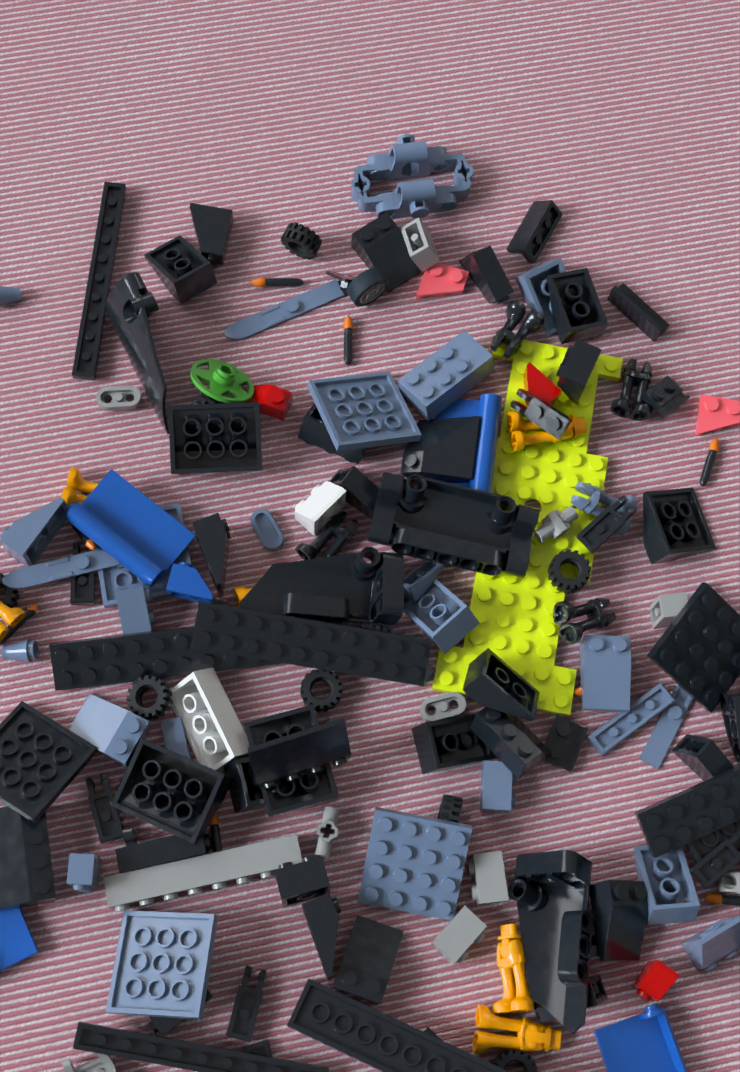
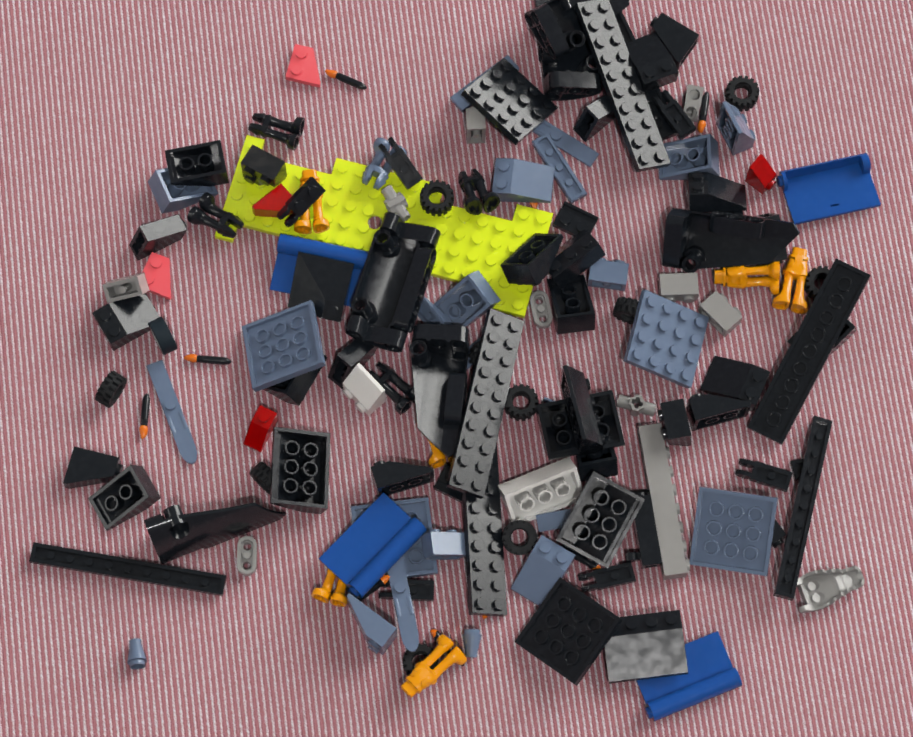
camera: 80 degrees left, 0 degrees up
(83, 872) = (659, 590): sand blue brick -> none
(187, 584) = (426, 499): blue slope -> none
(222, 379) = (242, 463): bright green wheel -> none
(267, 530) = (378, 438): sand blue tile -> none
(345, 279) = (151, 352): black piece -> none
(412, 197) = (37, 291): sand blue piece -> none
(446, 375) = (253, 277): sand blue brick -> none
(535, 230) = (115, 192): black panel -> none
(638, 311) = (203, 117): black panel -> none
(665, 396) = (286, 105): black plate -> none
(674, 525) = (401, 113): black slope -> none

